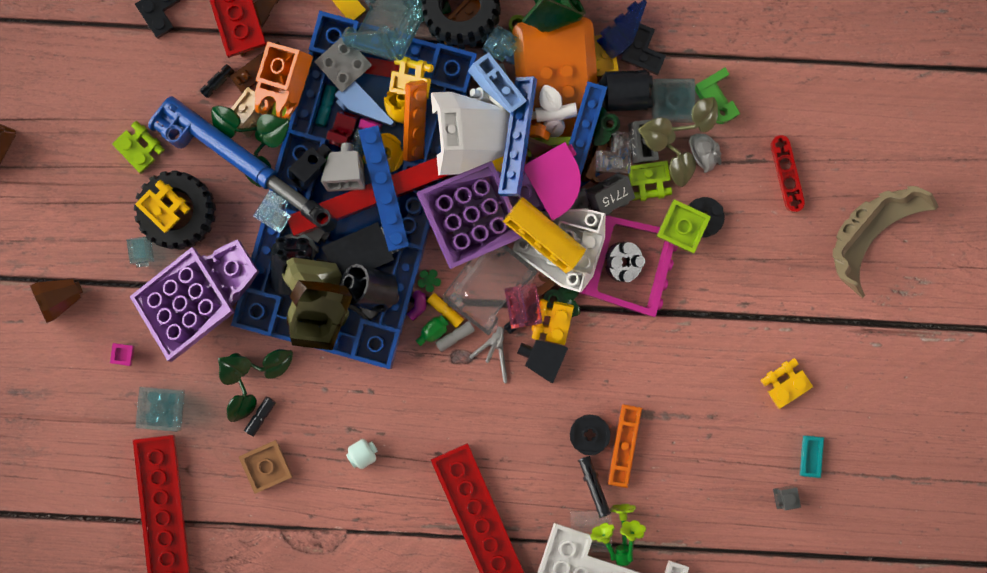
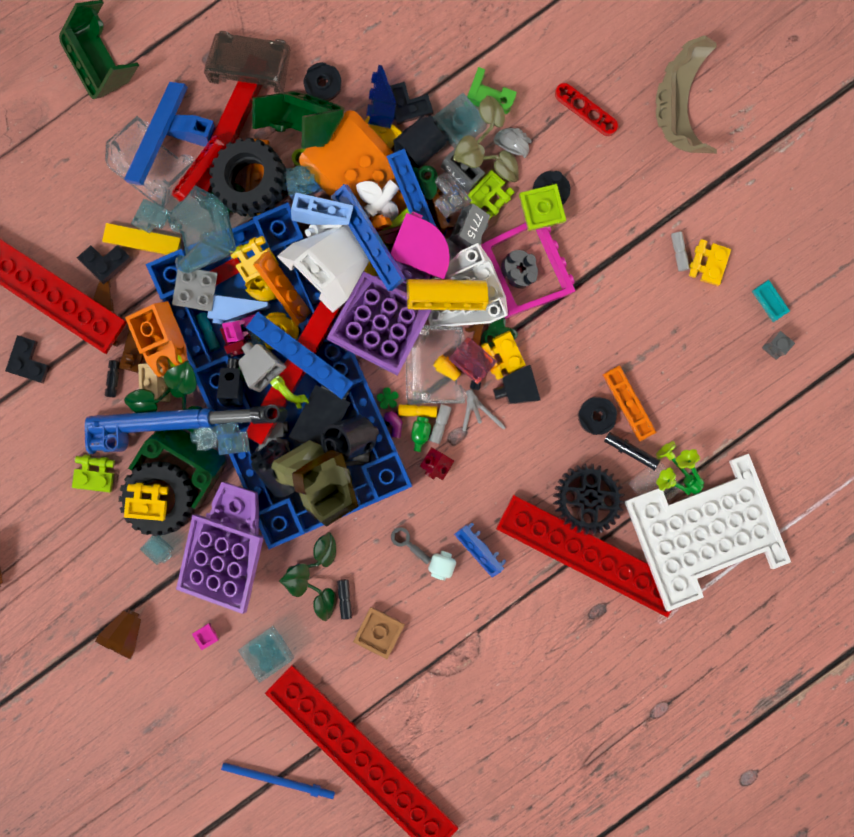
camera: 35 degrees left, 0 degrees up
(109, 552) = (314, 790): none -> blue bar
(232, 192) = (208, 463): none -> dark green windscreen
(252, 192) = (204, 438): none -> clear light blue brick
(346, 124) = (233, 330): none -> dark pink tile
(348, 197) = (278, 383): none -> lime arm
(350, 420) = (413, 548): none -> dark grey piece
(403, 466) = (480, 550): none -> blue plate
(424, 367) = (436, 464): none -> dark red brick
(497, 294) = (446, 367): none -> yellow cone
(533, 504) = (596, 495): none -> black gear
(770, 352) = (679, 248): none -> light grey piece

